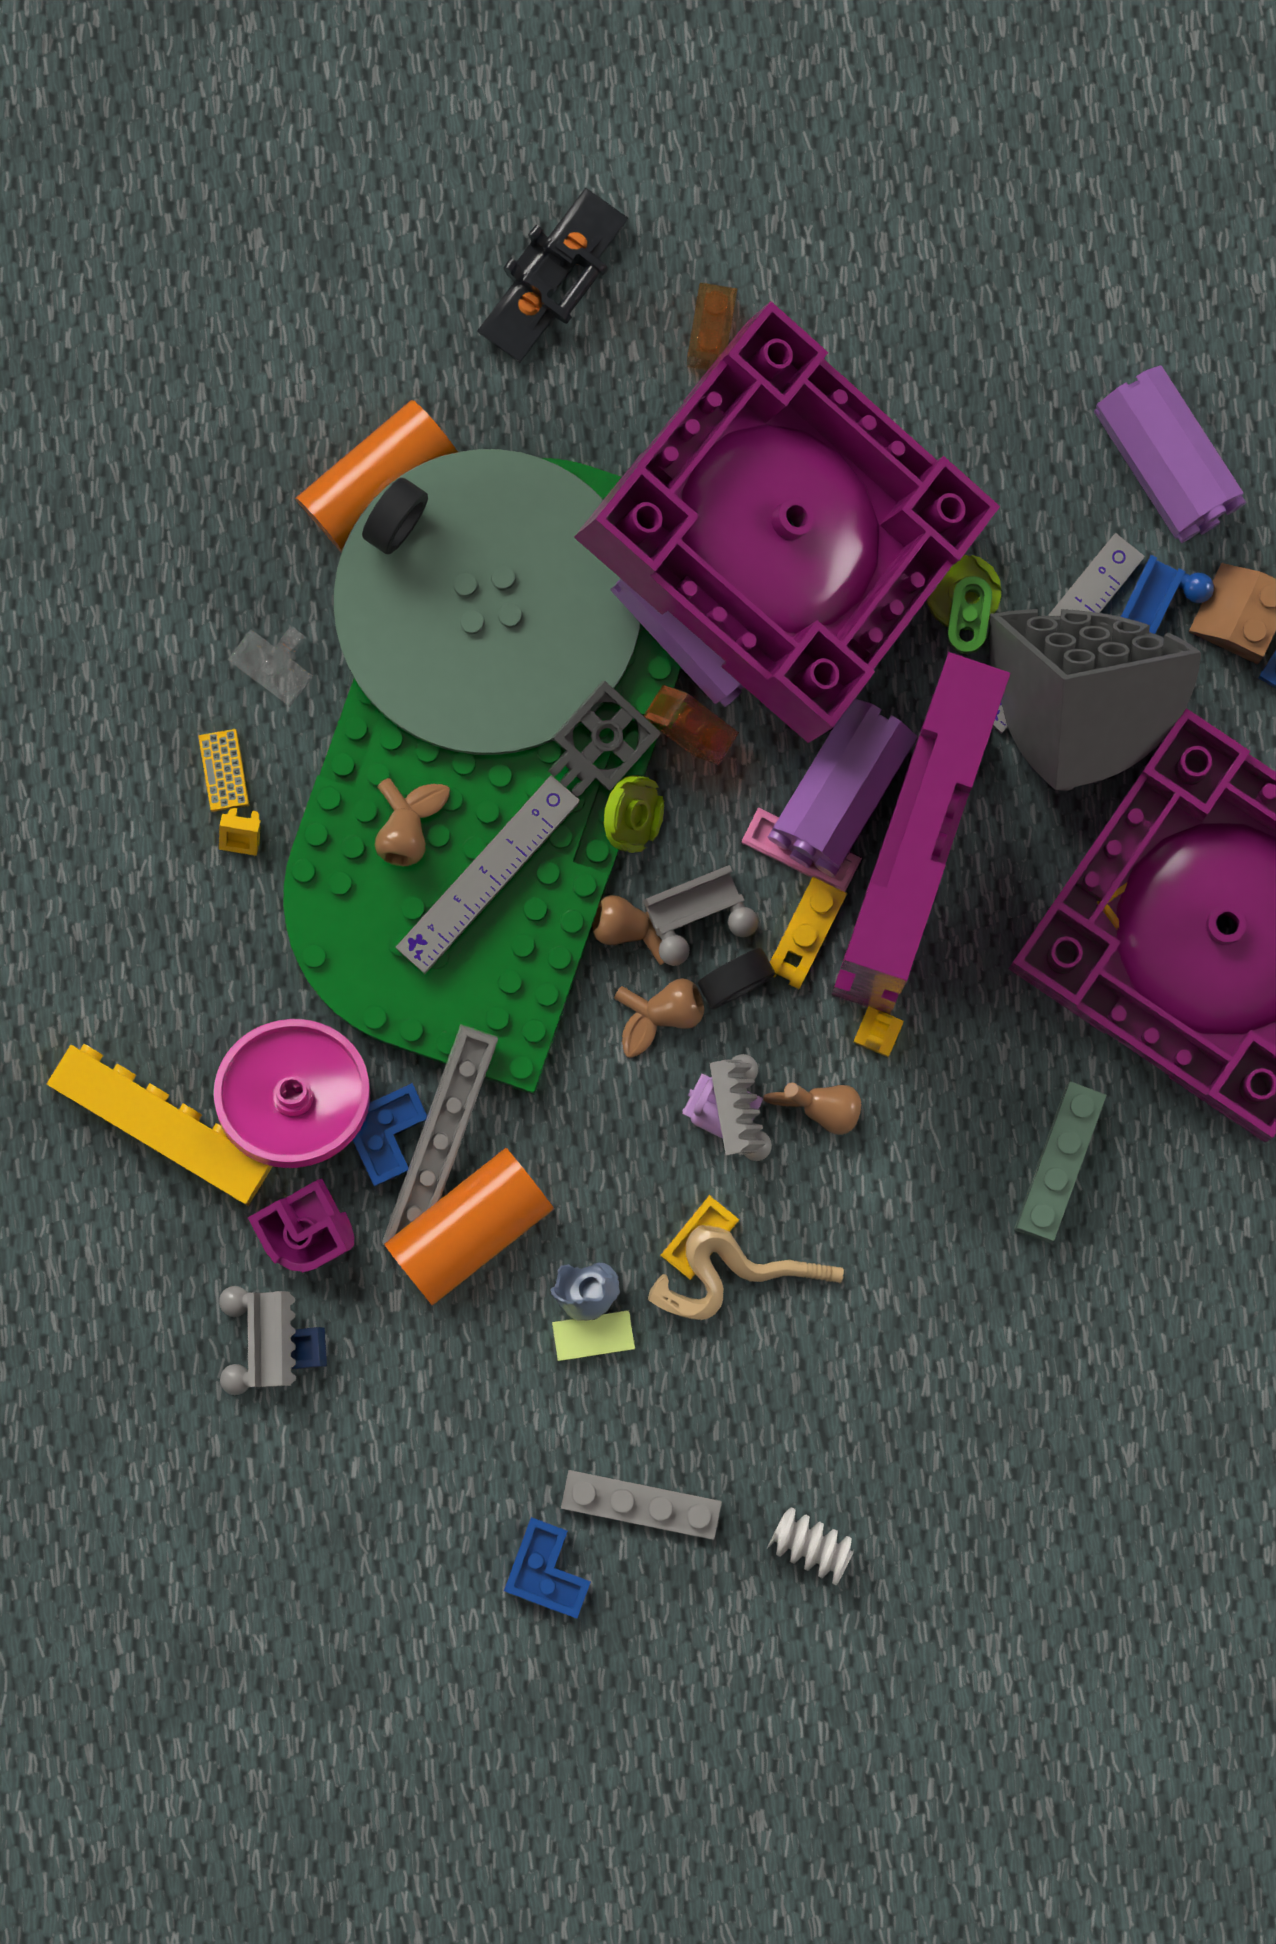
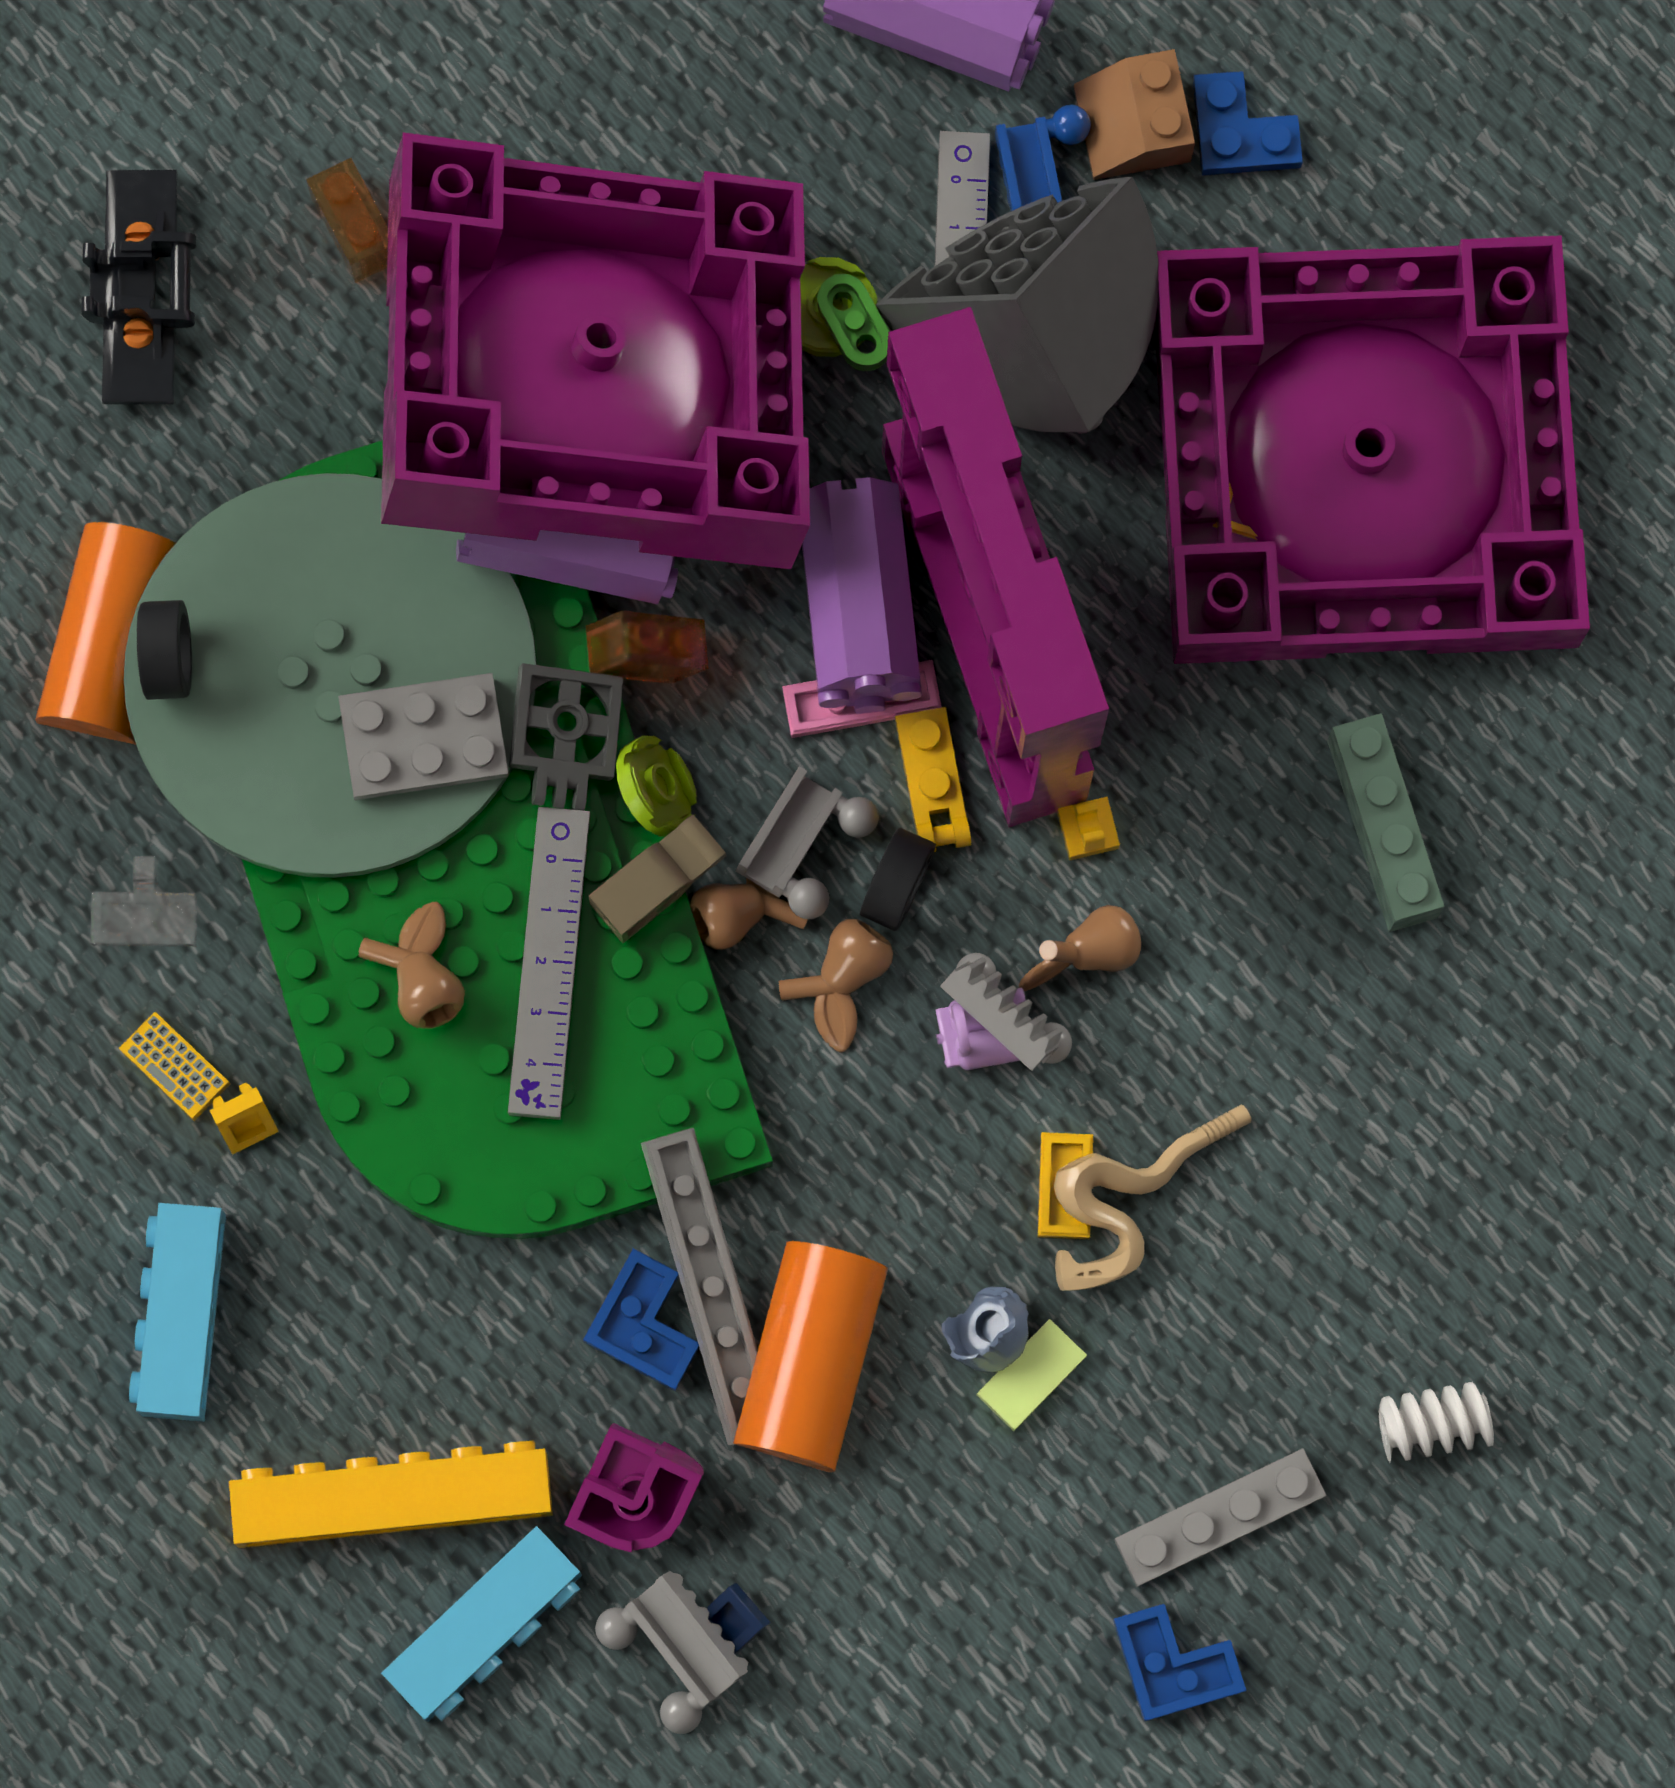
camera: 40 degrees left, 5 degrees down
(118, 920) = (180, 1312): none -> medium azure brick
(157, 1240) = (482, 1624): none -> medium azure brick
(292, 1093) = (511, 1355): dark pink dish -> none
(513, 681) = (423, 736): none -> light grey plate
(589, 871) = (655, 878): none -> dark tan piece

